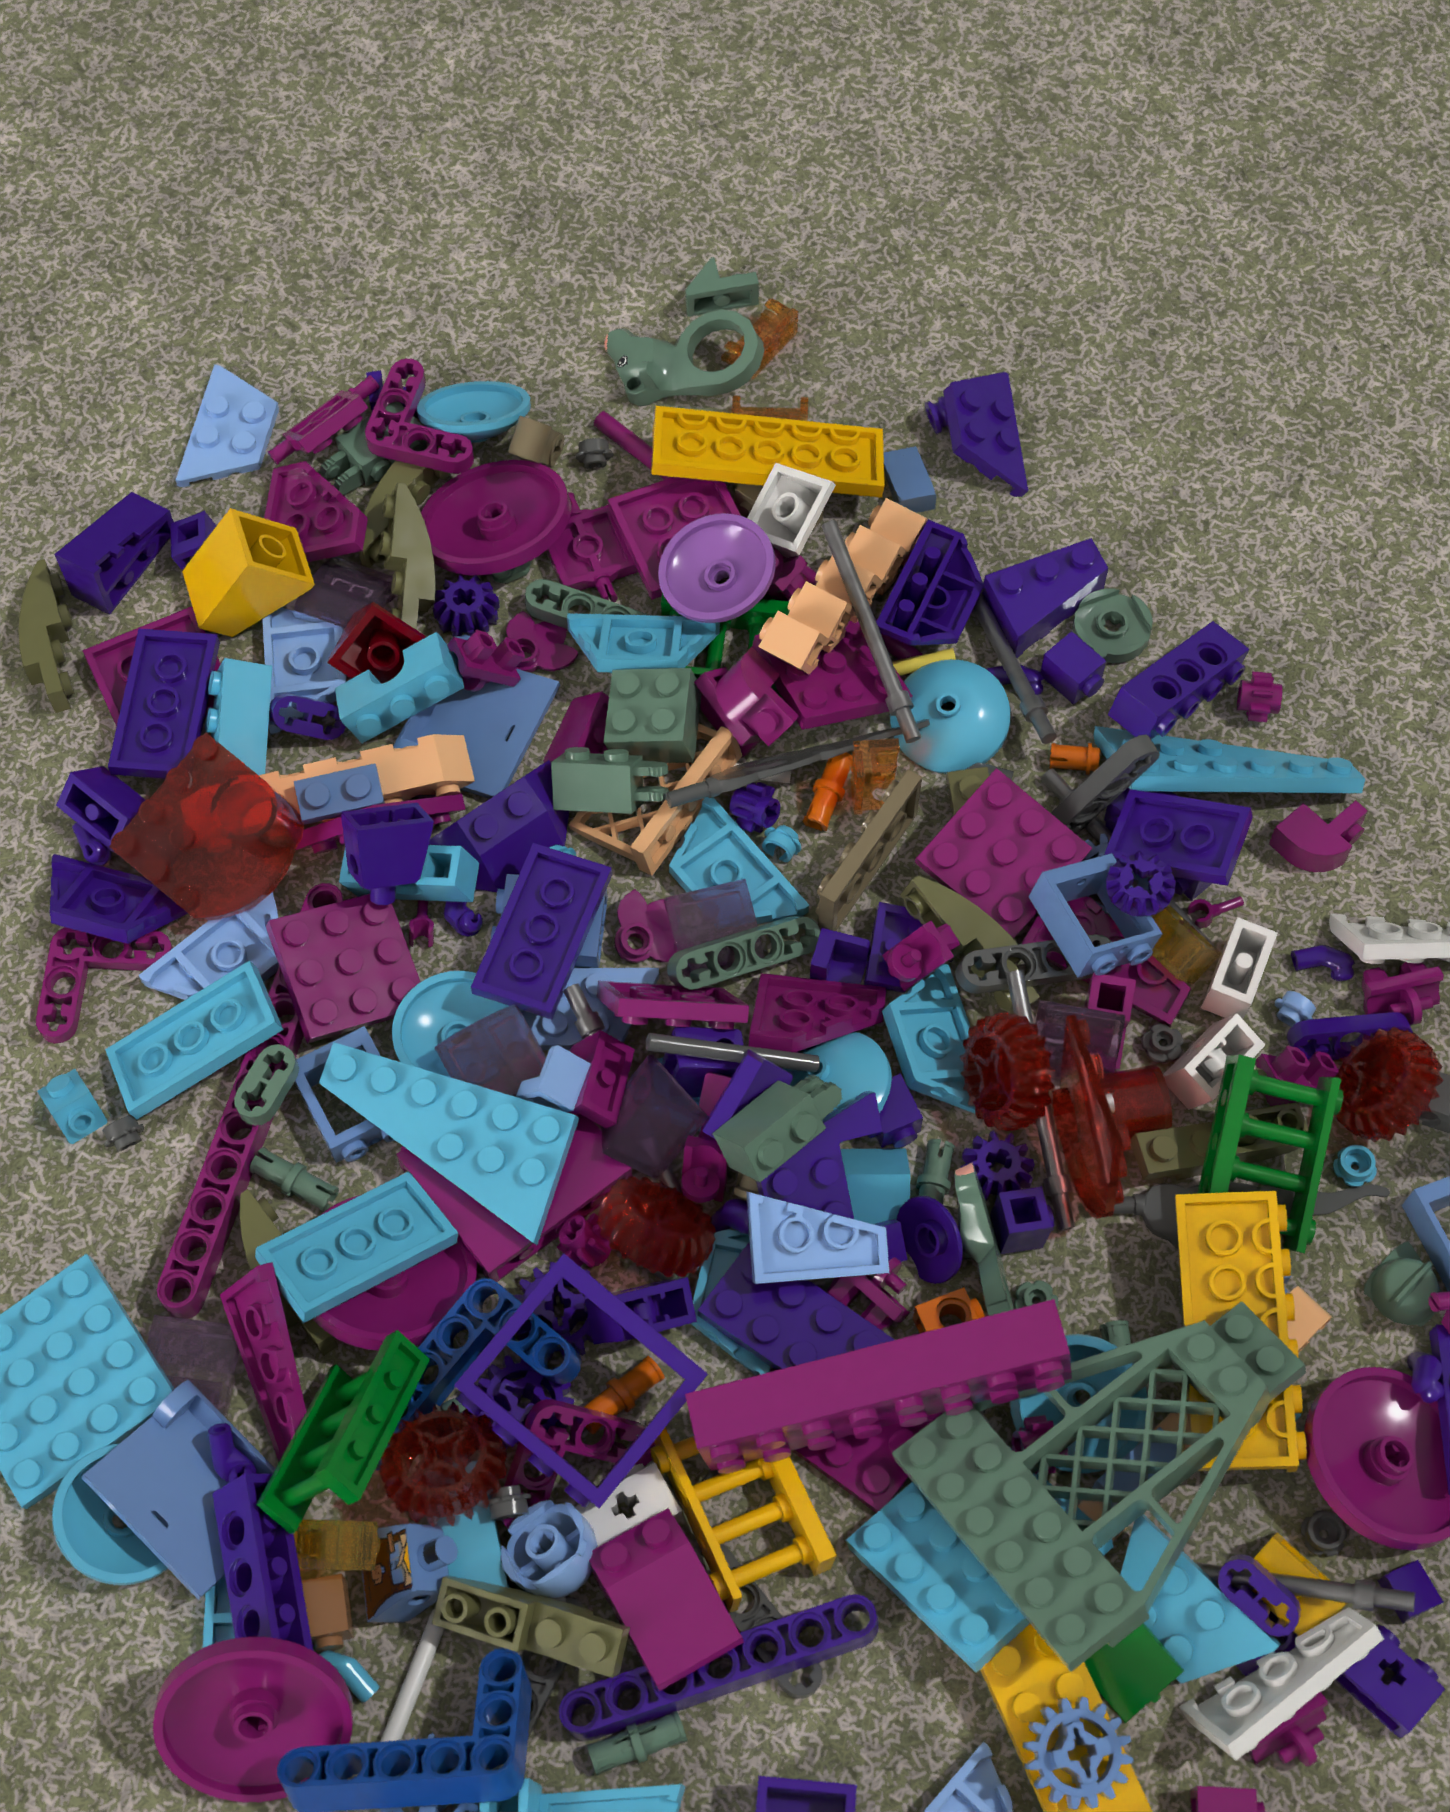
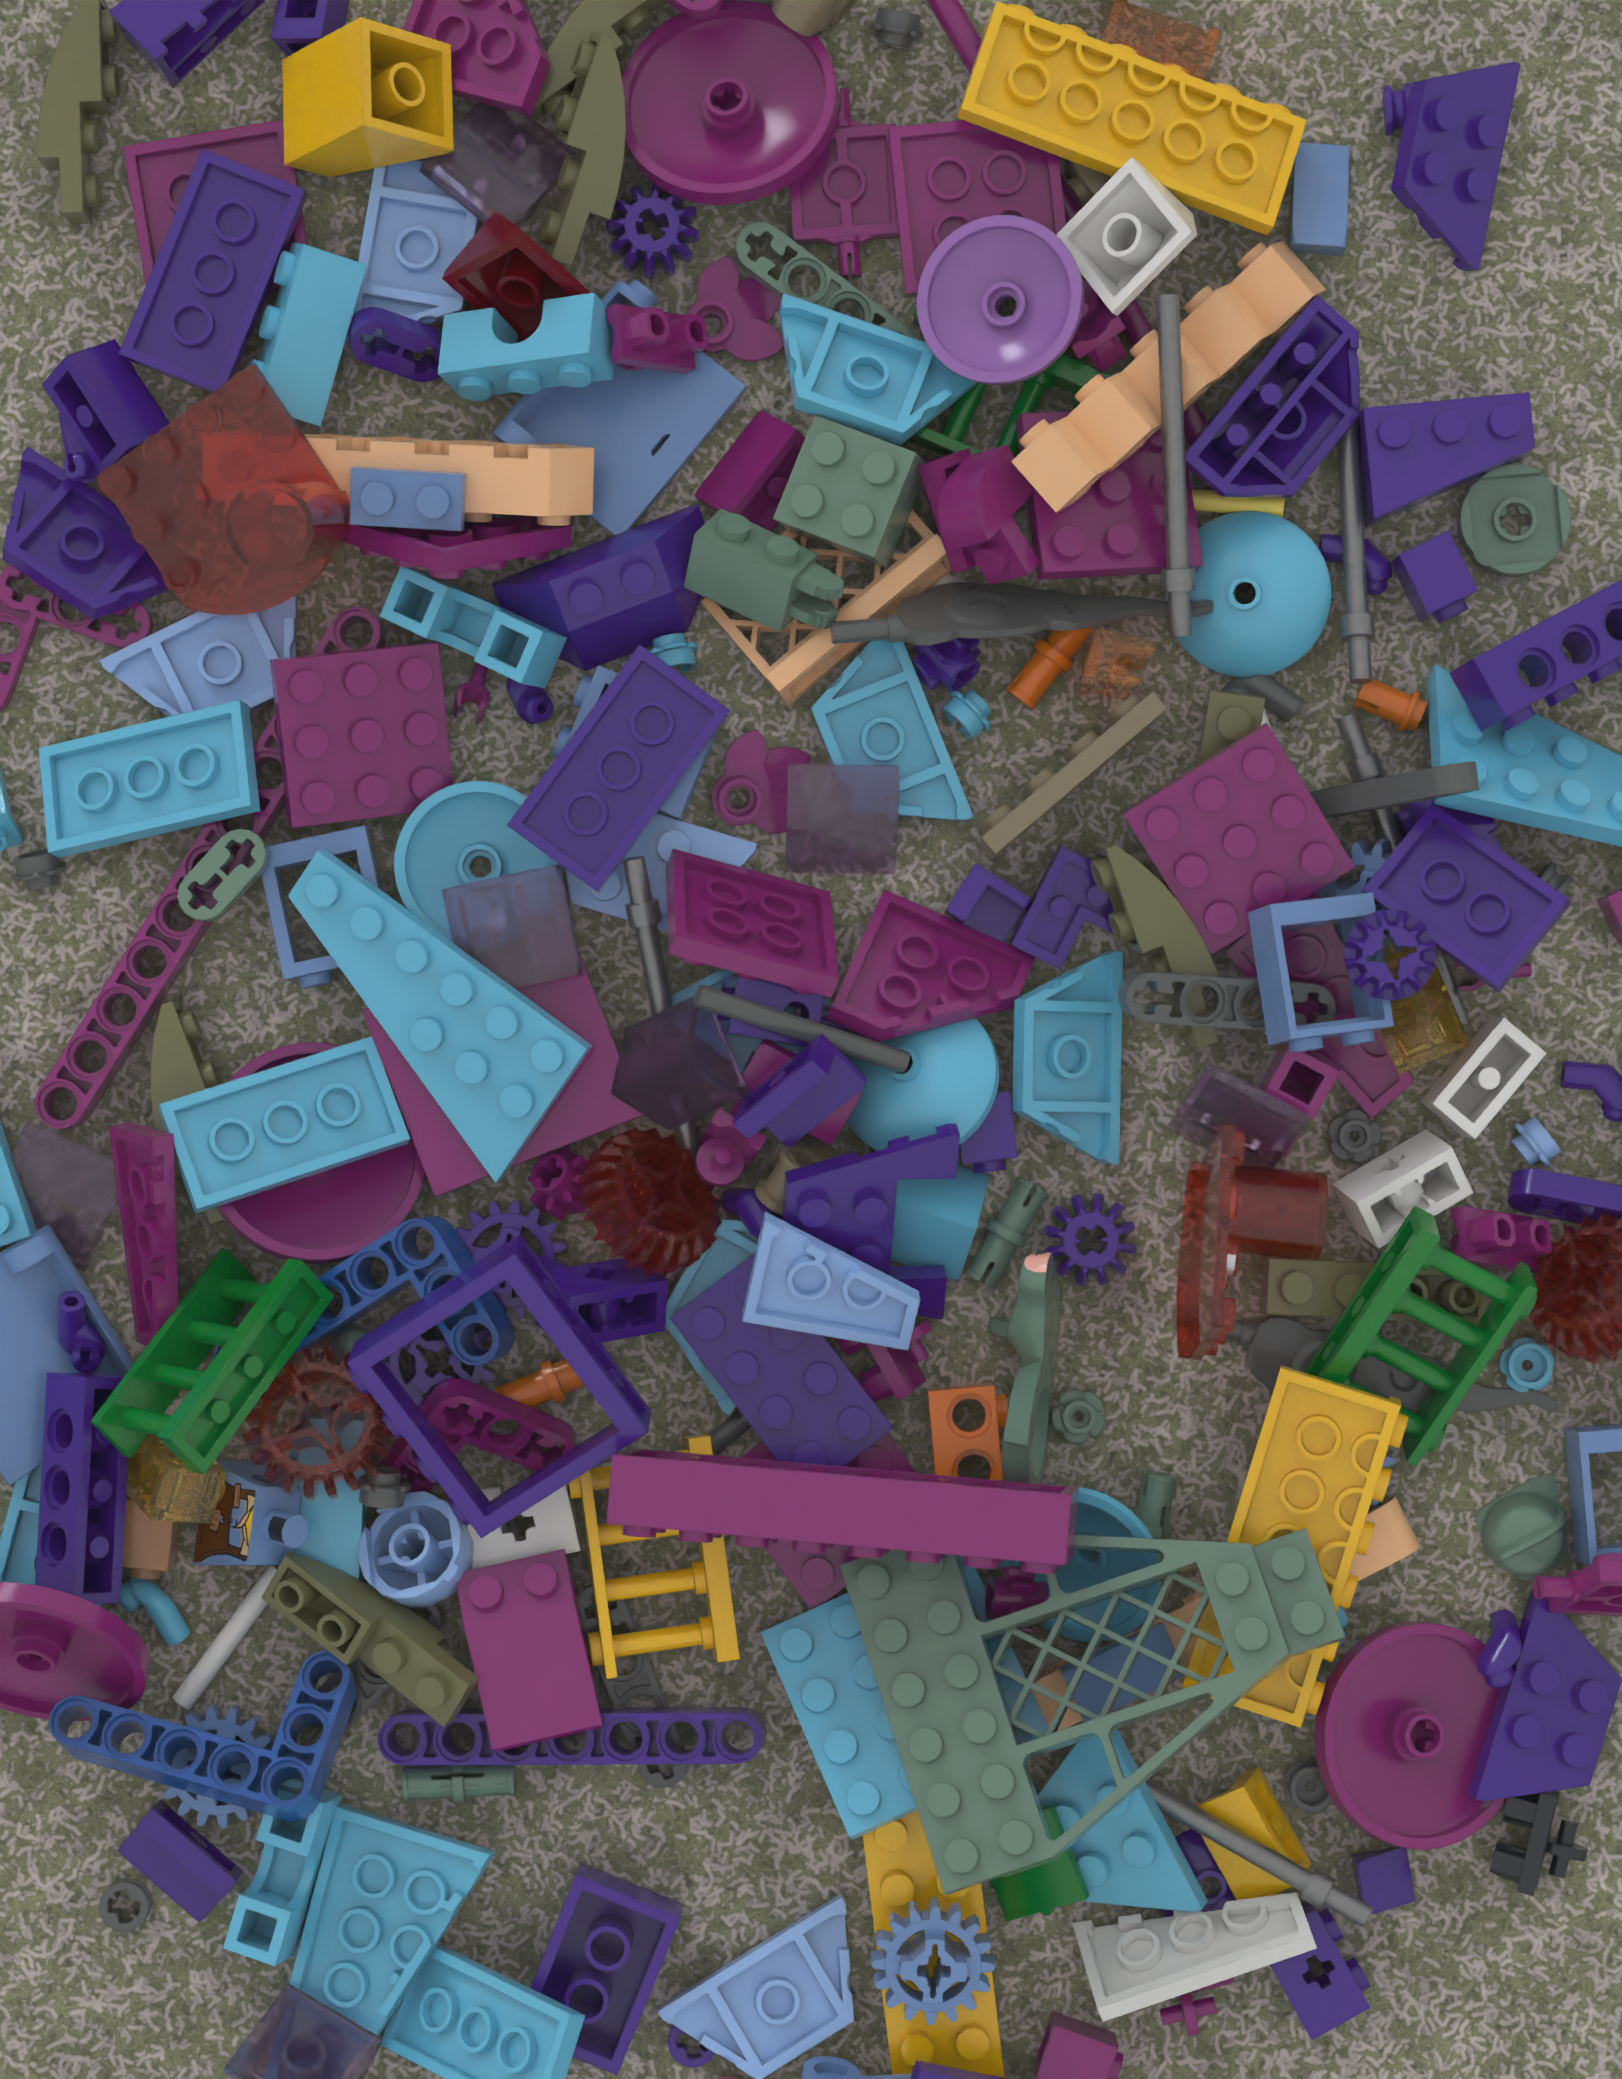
camera: 15 degrees right, 25 degrees up
(293, 1179) = (232, 993): sand green pin -> none
(386, 847) = (447, 610): dark purple torso -> none
(558, 1081) = (579, 997): light blue panel -> none
(605, 1079) = (626, 994): magenta panel -> none
(744, 949) = (869, 856): sand green beam -> none
(776, 1125) = (826, 1145): sand green hinge -> none
(921, 953) = (1083, 949): magenta hips -> none
(931, 1238) = (976, 1312): dark purple dish -> none
(1007, 1071) = (1138, 1137): clear red gear -> none
(1021, 1220) = (1094, 1320): dark purple brick -> none
(1057, 1183) = (1155, 1278): flat silver bar -> none
(1251, 1603) = (1201, 1848): dark purple beam -> none

